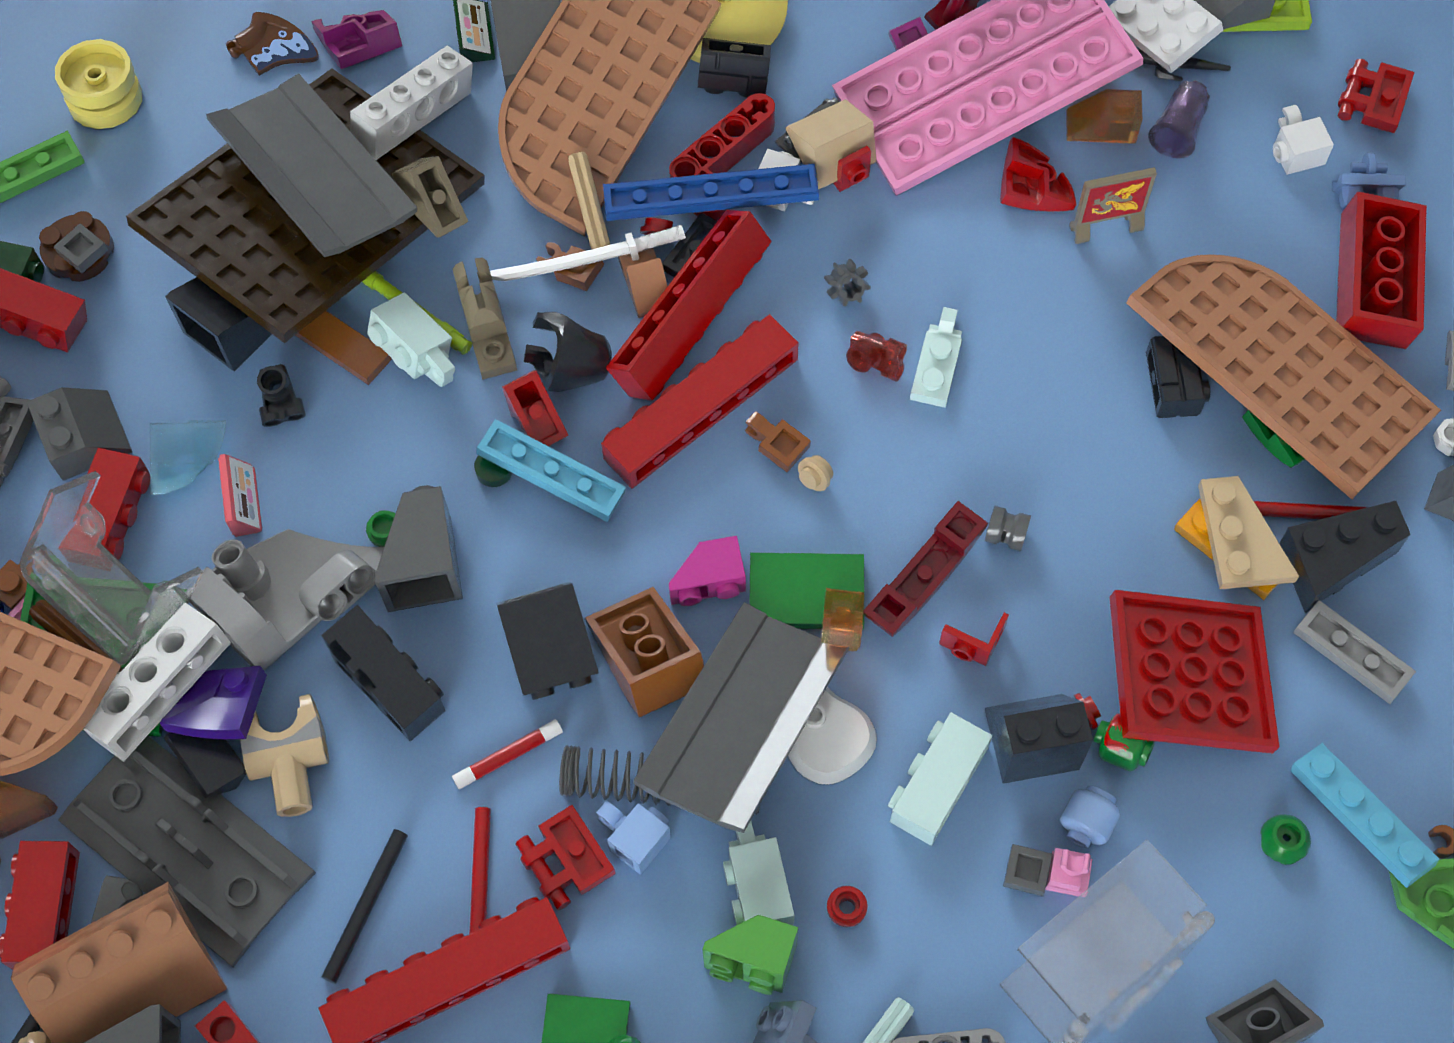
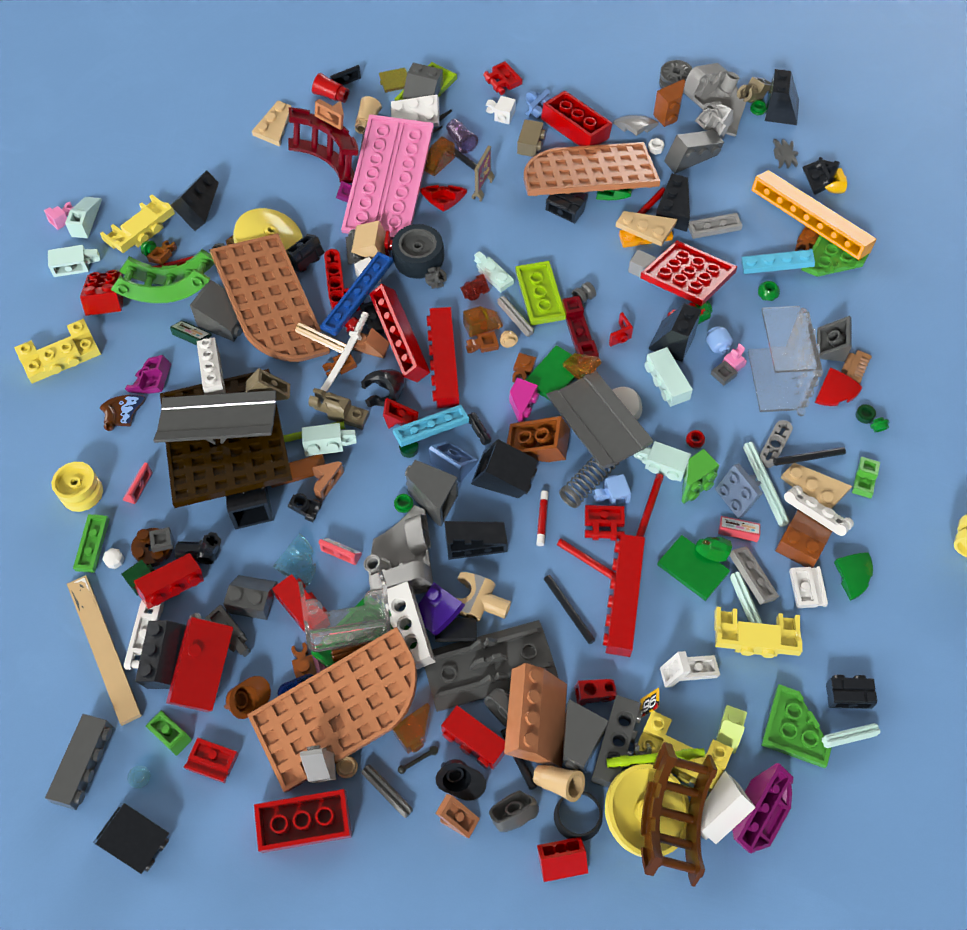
camera: 55 degrees left, 5 degrees down
(25, 214) = (113, 558): none -> white tile
(105, 310) = (201, 551): none -> black piece
(164, 155) = (138, 484): none -> coral slope
(354, 393) = (328, 477): none -> nougat slope
(516, 544) = (451, 459): none -> medium blue slope
(606, 545) = (479, 428): none -> black axle
(649, 913) = (650, 505): none -> red bar
(784, 531) = (523, 366): none -> dark orange plate
(818, 407) = (480, 320): none -> clear orange slope
(874, 453) = (515, 316): none -> light grey axle
(875, 219) = (417, 250): none -> black wheel
(952, 458) = (540, 293): none -> lime plate
(1142, 143) = (464, 159): none -> black bar
(1152, 575) = (640, 262): none -> light grey panel
(1277, 225) = (530, 138): none -> dark tan brick

